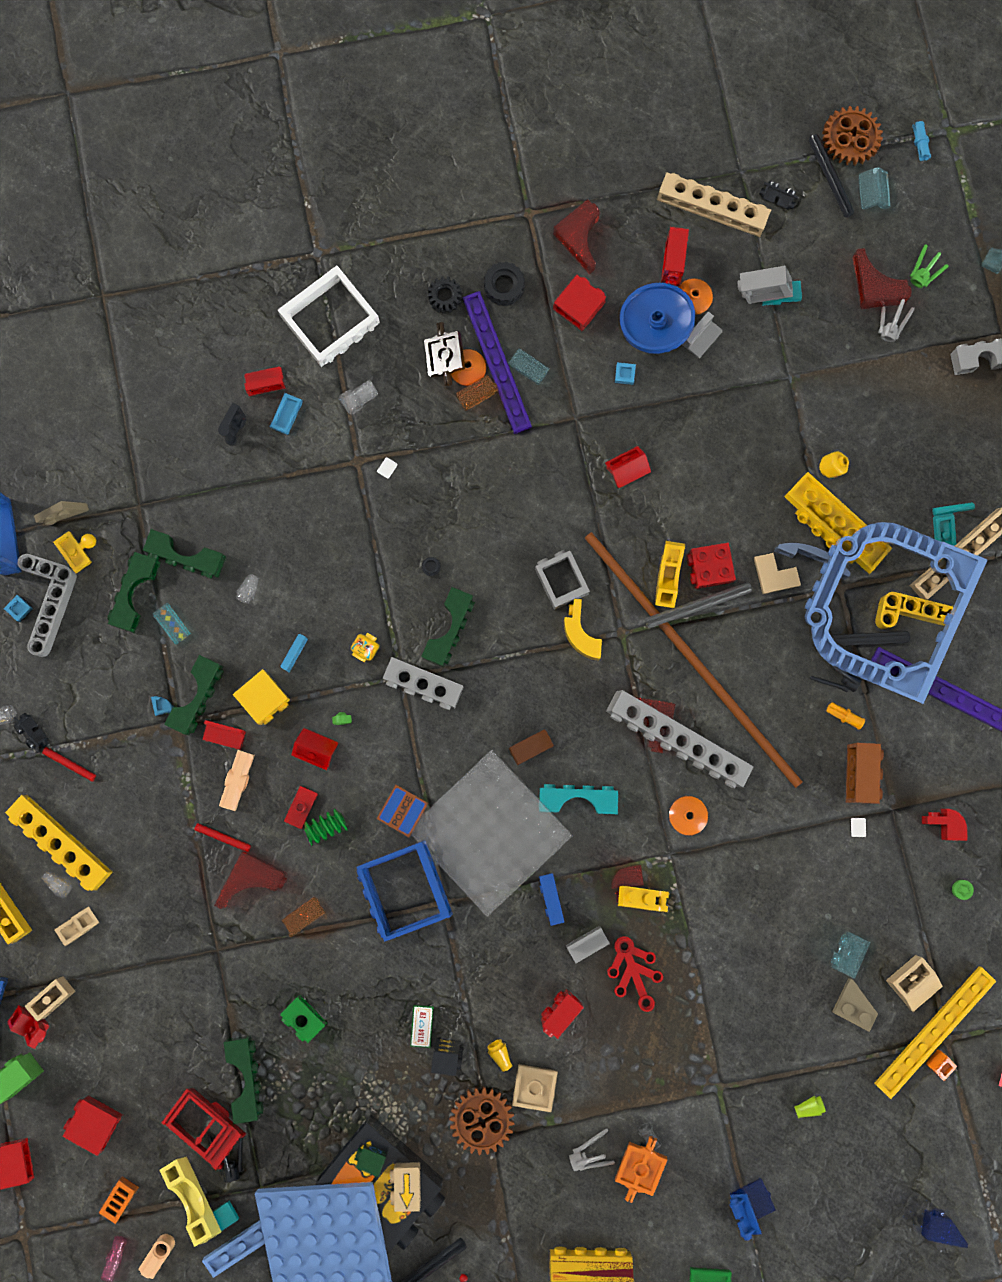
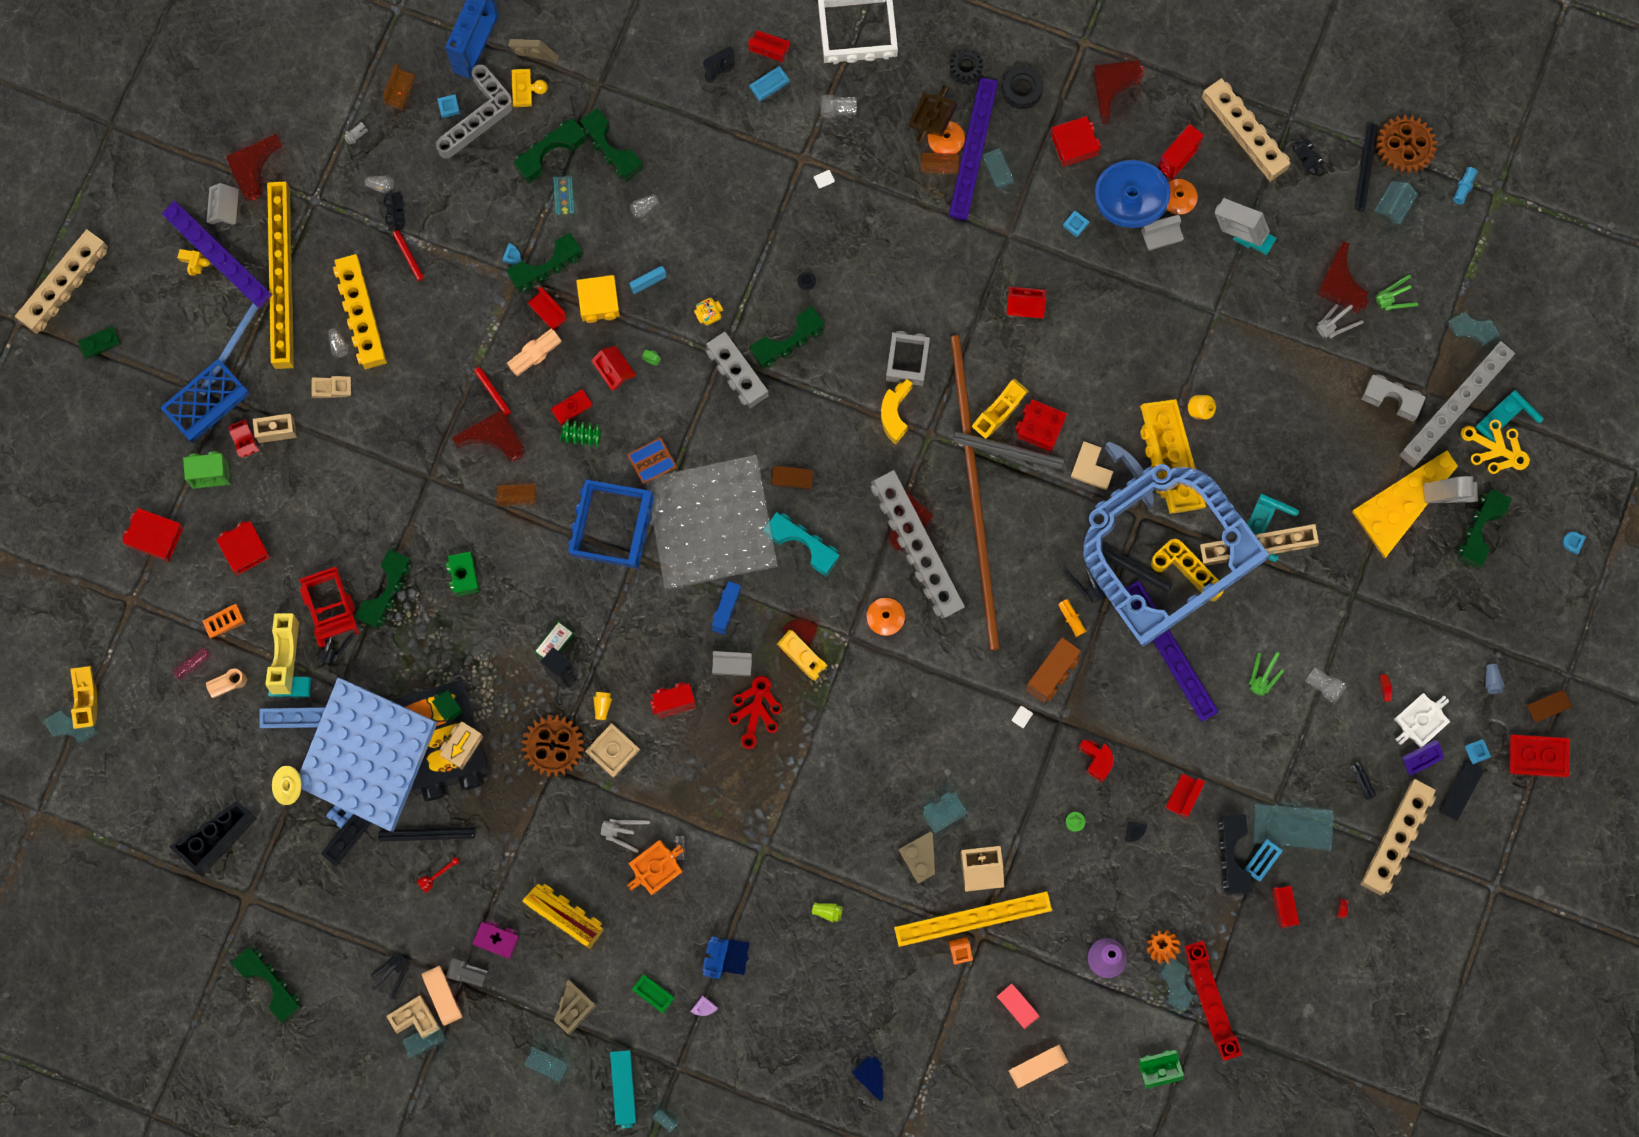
camera: 35 degrees right, 5 degrees down
(761, 1262) = (704, 1007): none -> lavender tile

